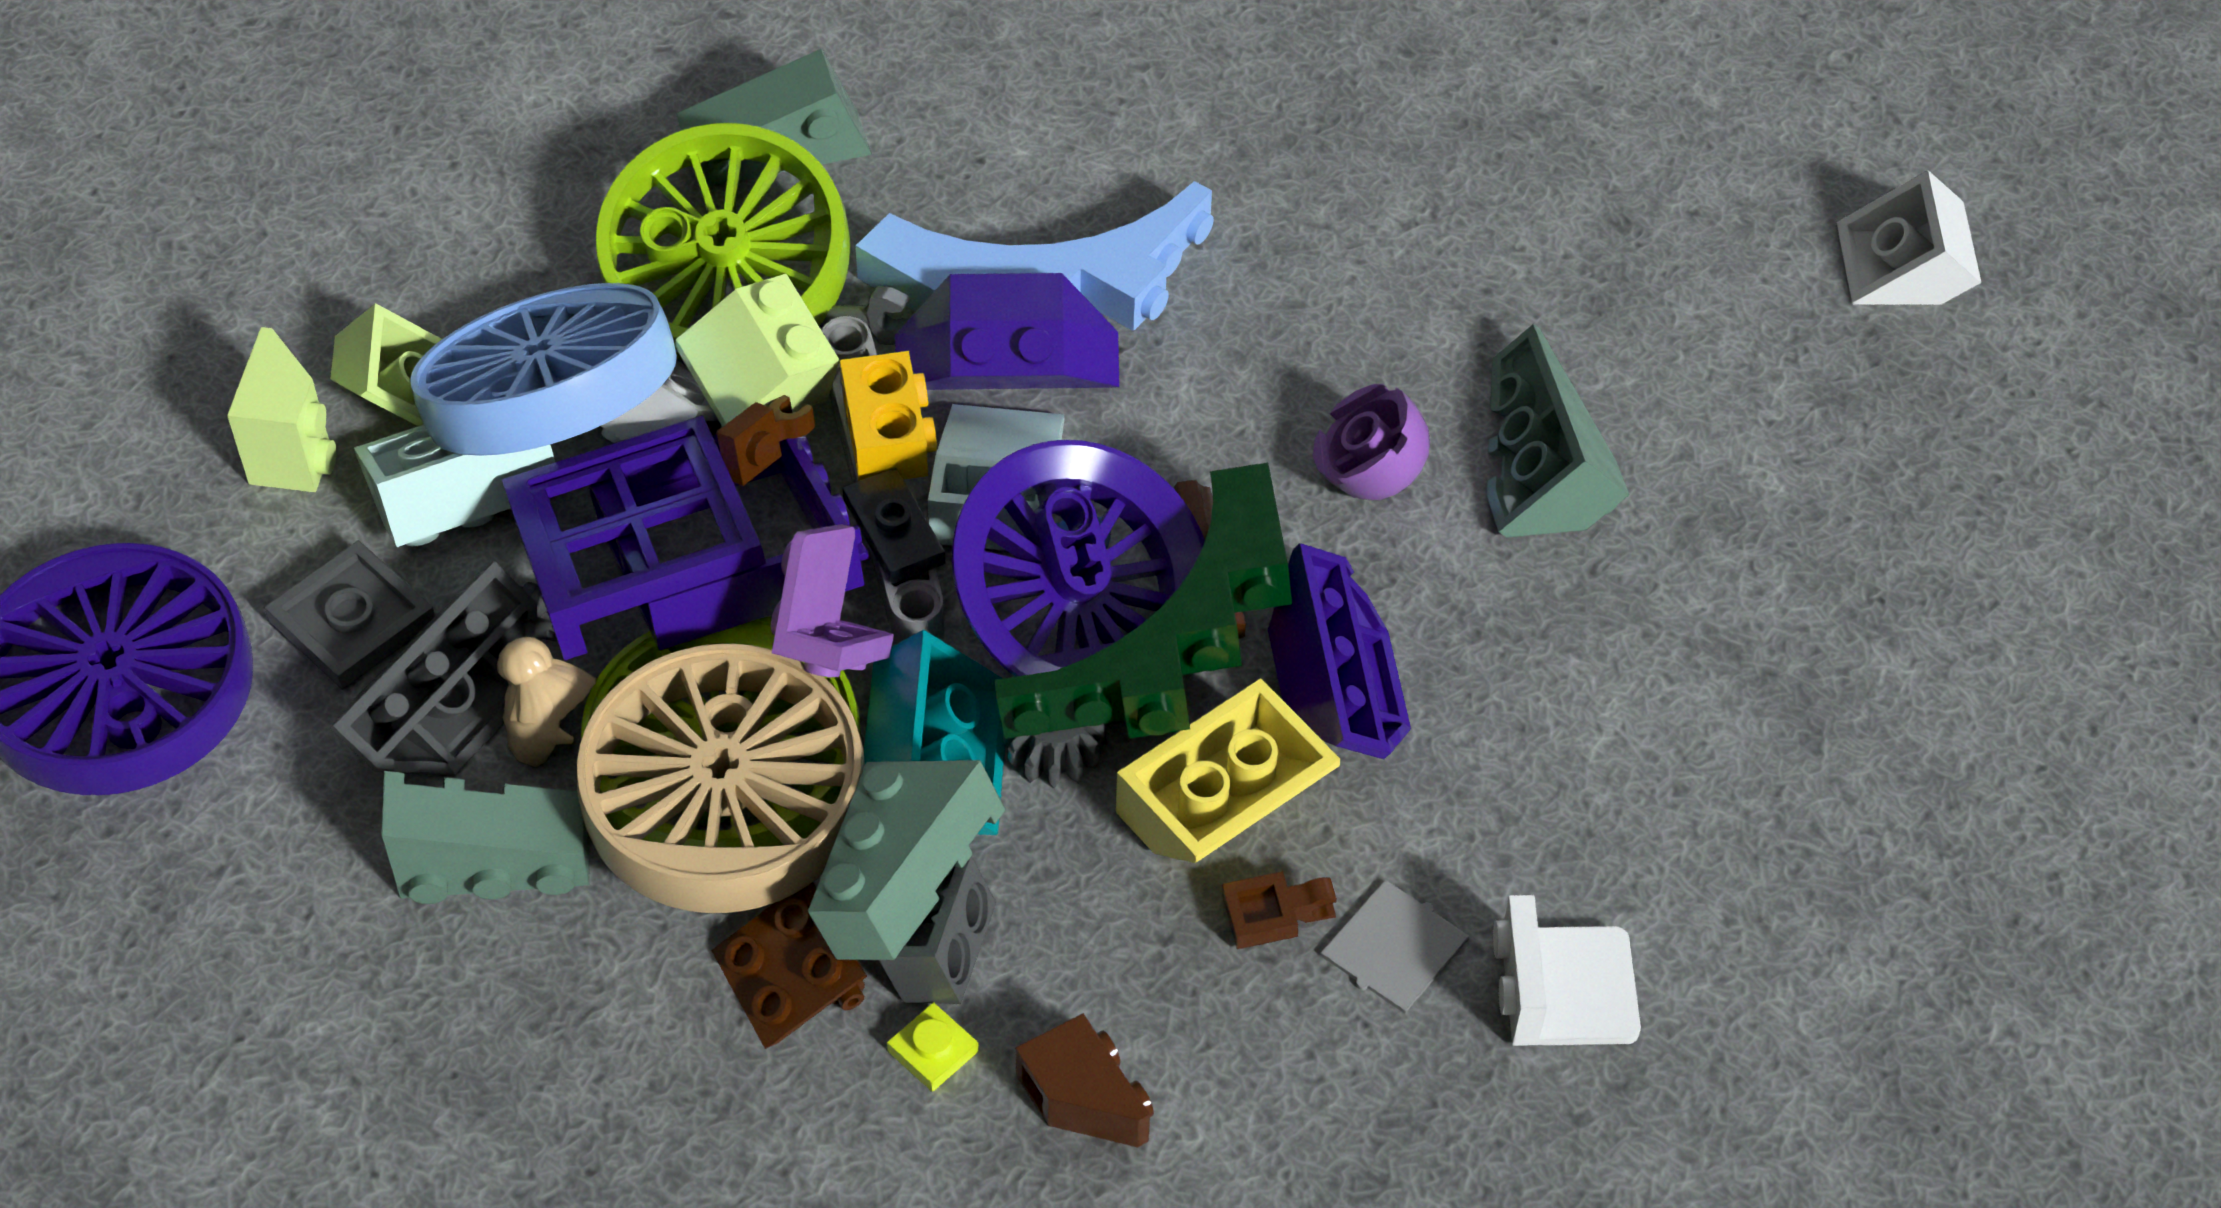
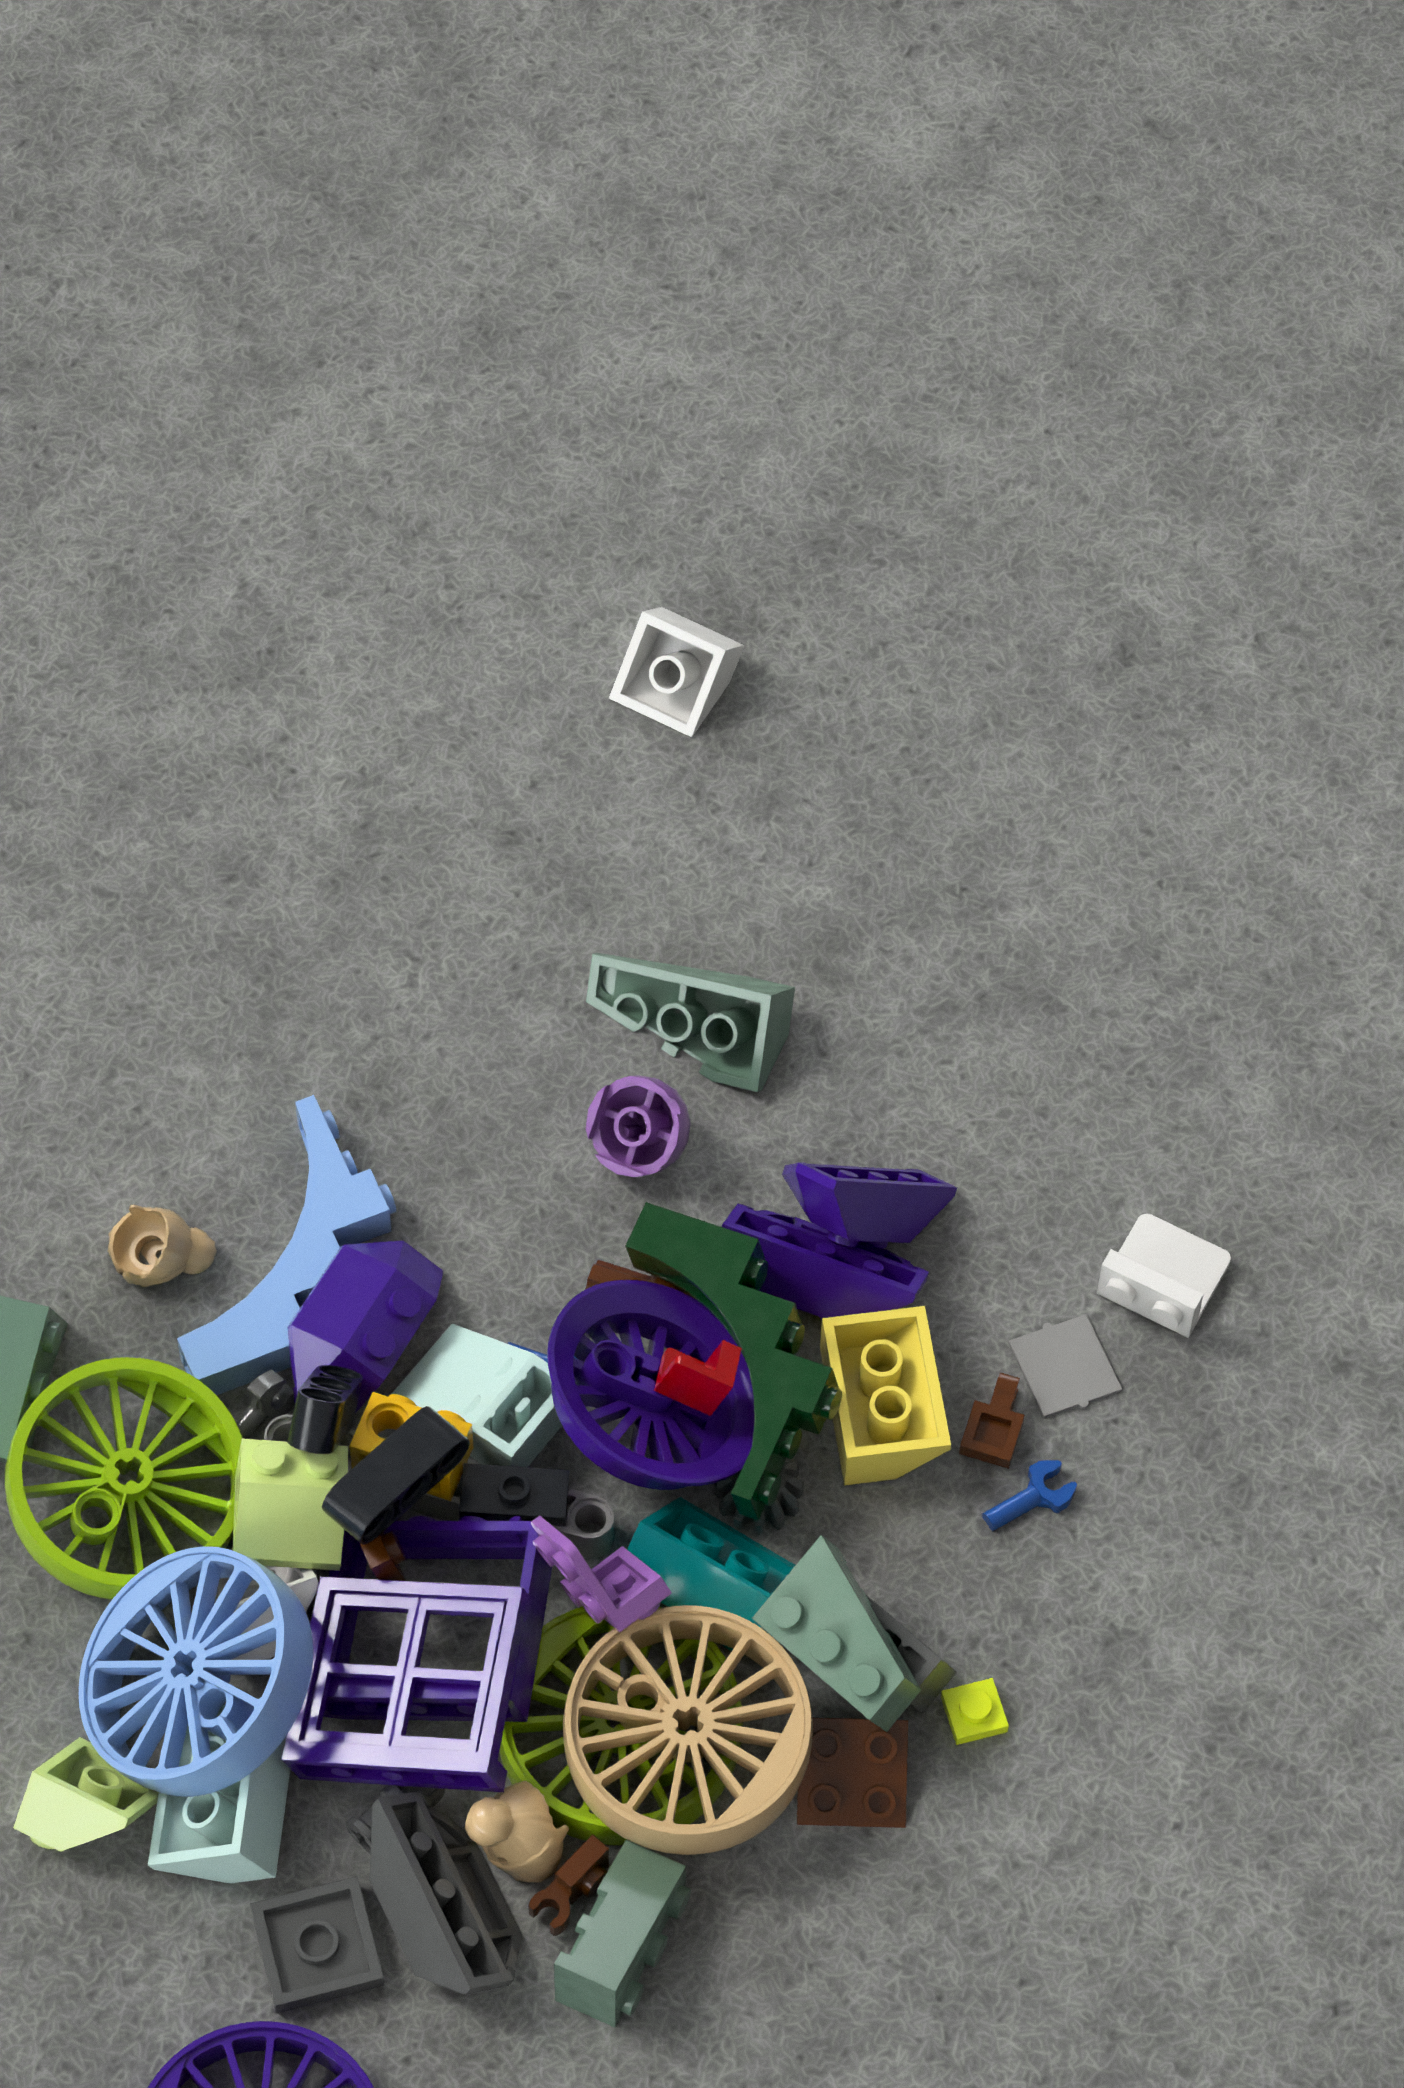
camera: 60 degrees left, 5 degrees up
(280, 420) = (92, 1901): yellowish green slope -> none
(521, 770) = (578, 1876): none -> reddish brown plate
(818, 395) = (395, 1475): none -> black beam
(861, 319) = (324, 1409): none -> black beam
(984, 169) = (182, 1247): none -> tan piece
(1079, 1084) = (1071, 1626): reddish brown slope -> none
(1104, 593) = (698, 1382): none -> red panel
(1219, 986) = (1034, 1495): none -> blue bar
(1431, 662) = (868, 1201): none -> dark purple wedge

